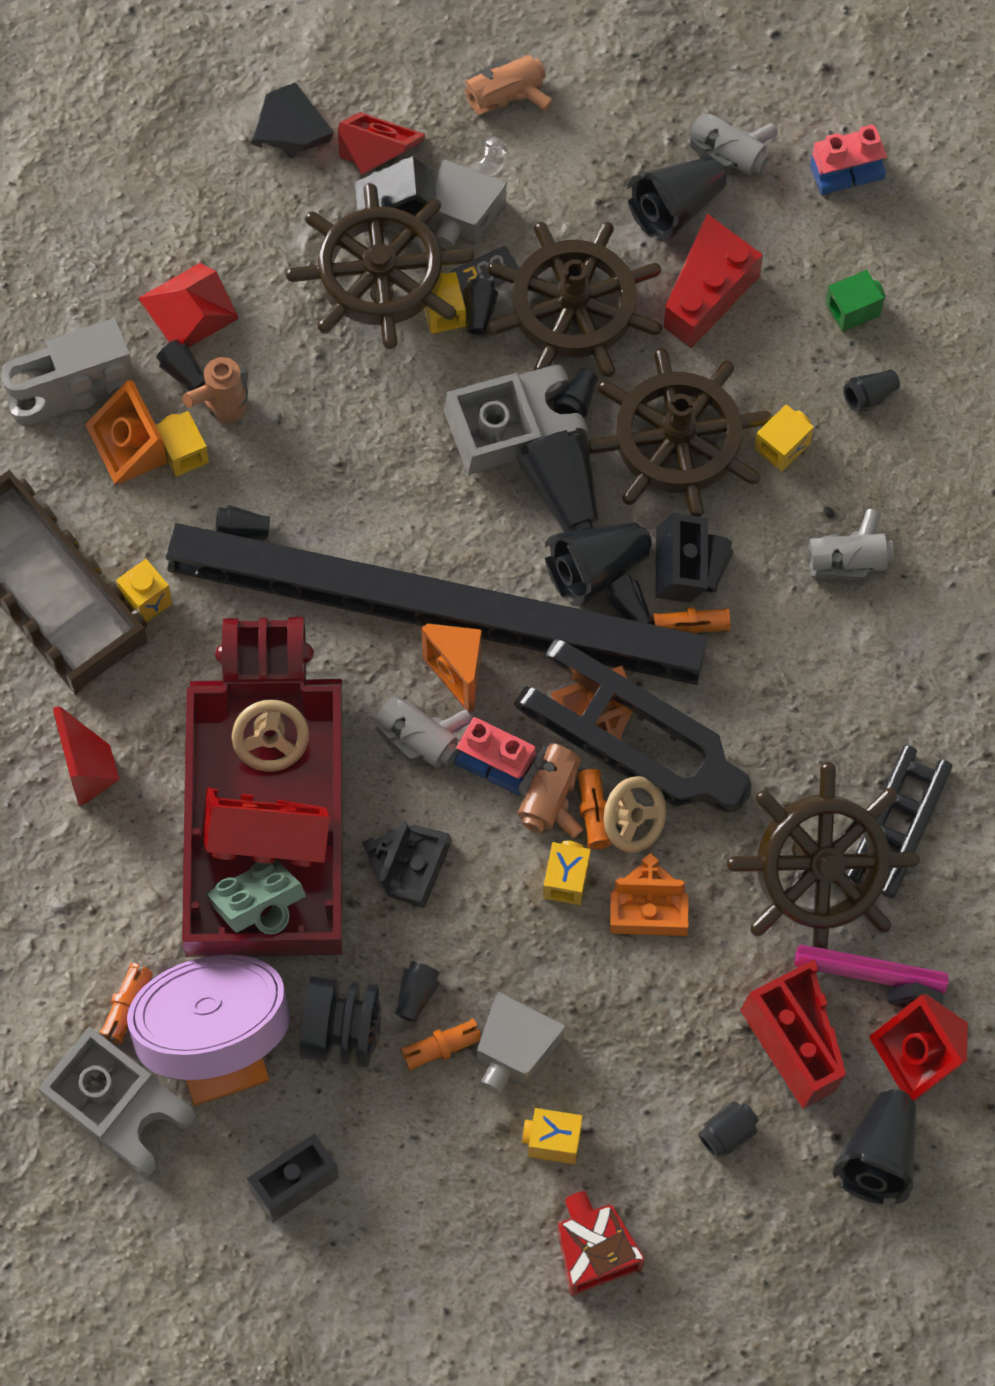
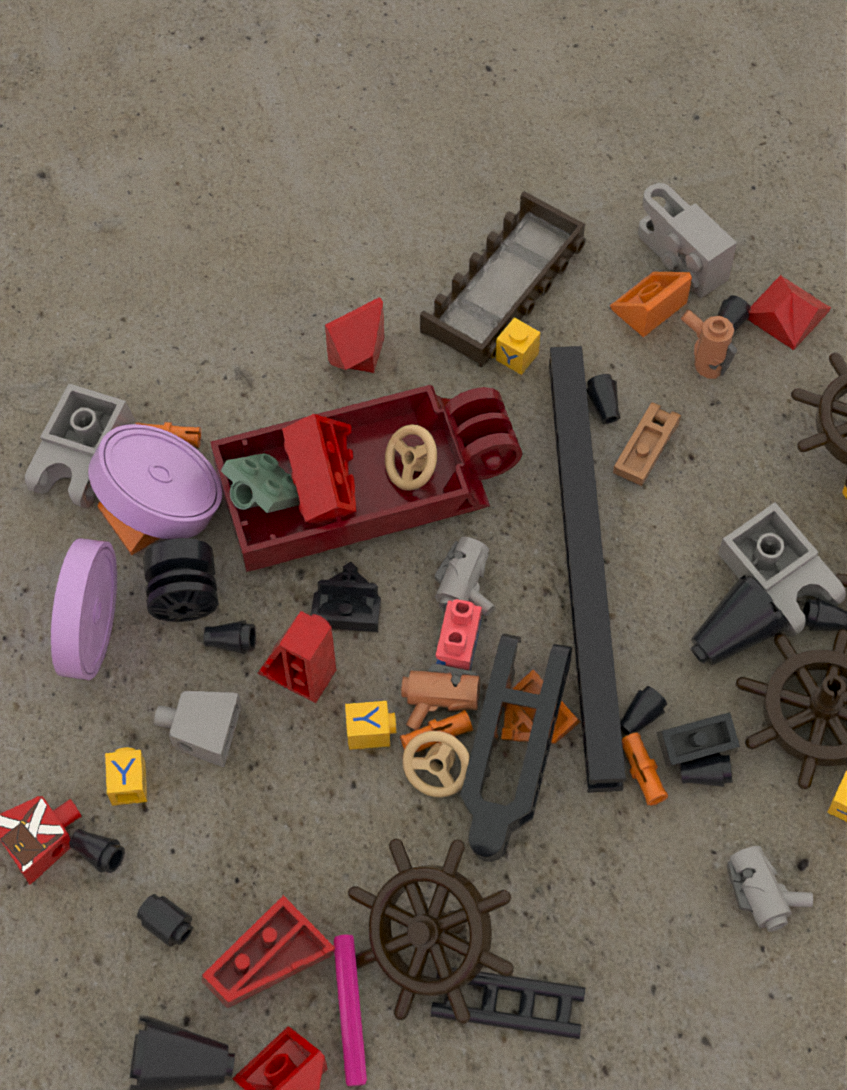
camera: 75 degrees right, 5 degrees down
(182, 443) = (659, 336): yellow brick -> none
(293, 1178) = (33, 580): black brick -> none
(313, 500) = (646, 444): none -> medium nougat plate
(362, 1119) = (83, 609): none -> lavender brick
(441, 1044) = (187, 667): orange pin -> none
(455, 659) = (529, 584): orange slope -> none
(476, 915) = (303, 657): none -> red wedge
(593, 558) = (674, 671): black cone -> none
(629, 1184) = (98, 850): none -> black cone
(649, 902) = (363, 802): orange slope -> none
(908, 993) = (334, 1058): black tile -> none

